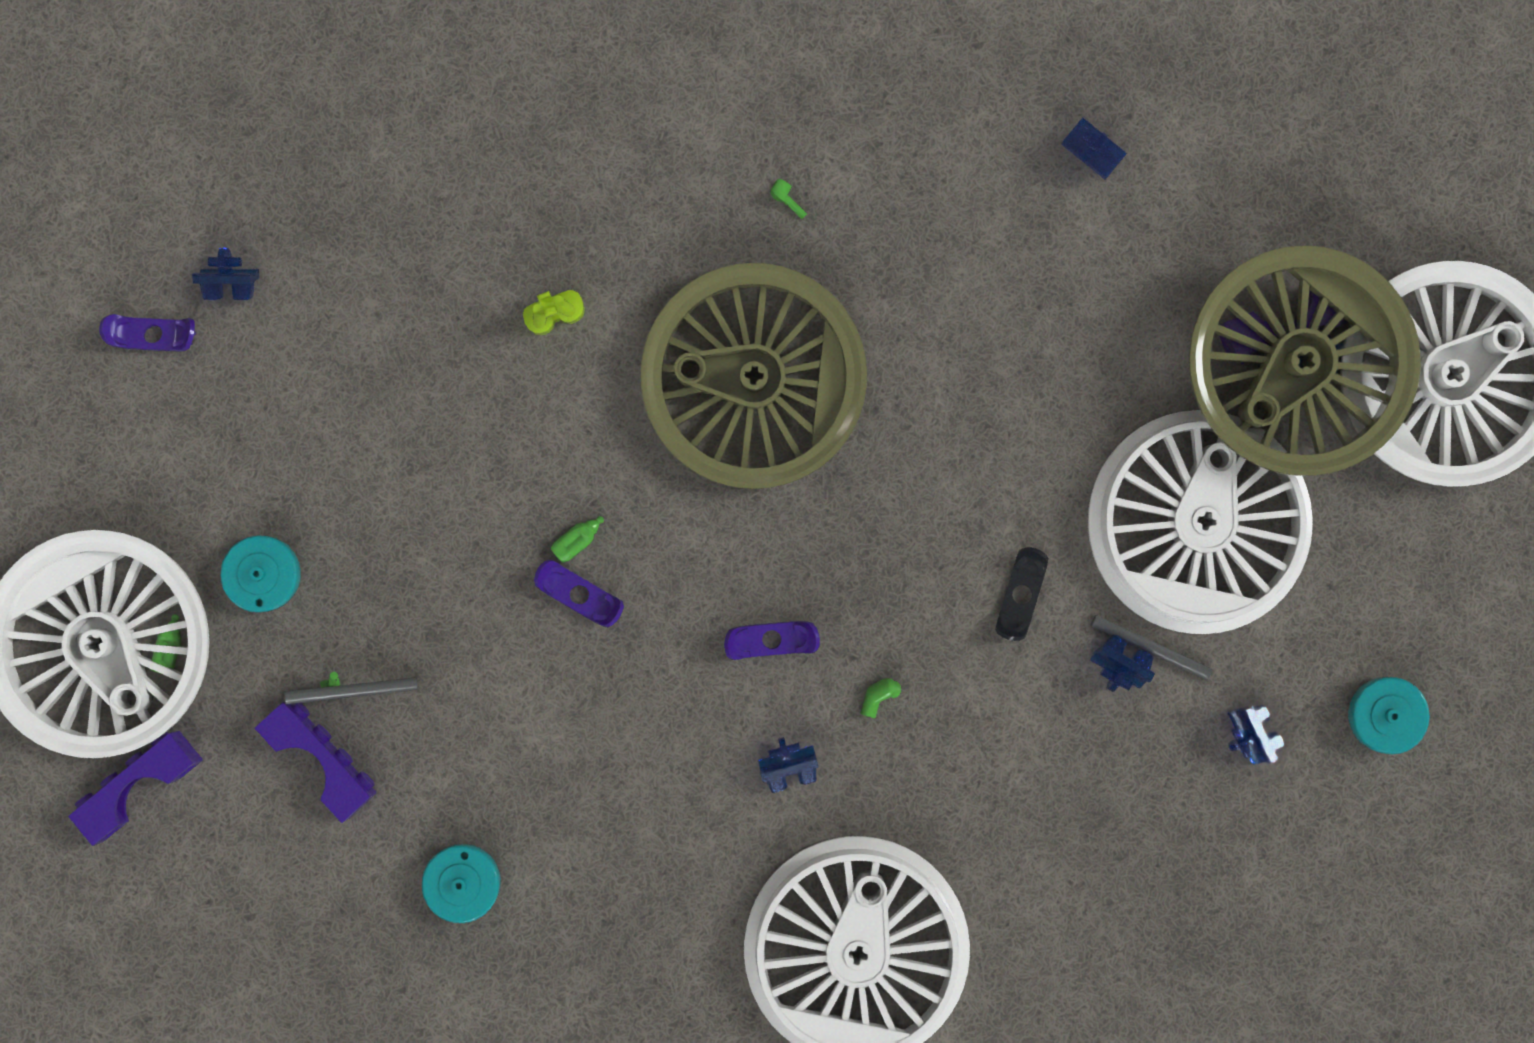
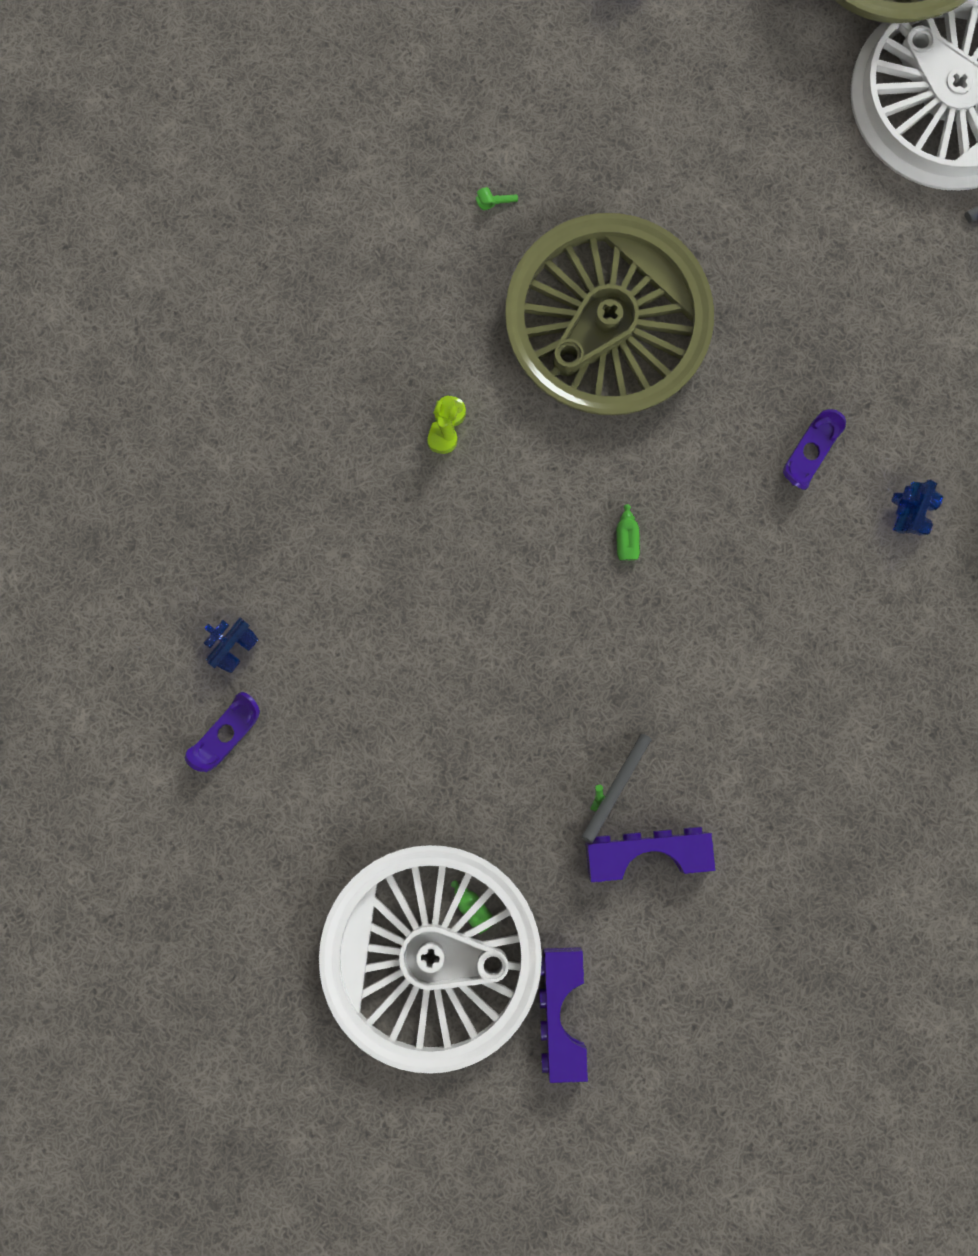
camera: 55 degrees left, 5 degrees down
(260, 573) = (473, 790): teal wheel -> none
(461, 883) = (826, 817): teal wheel -> none
(558, 582) = (691, 557): dark purple piece -> none
(879, 692) = (908, 406): bright green arm -> none
(1027, 571) = (898, 234): black piece -> none

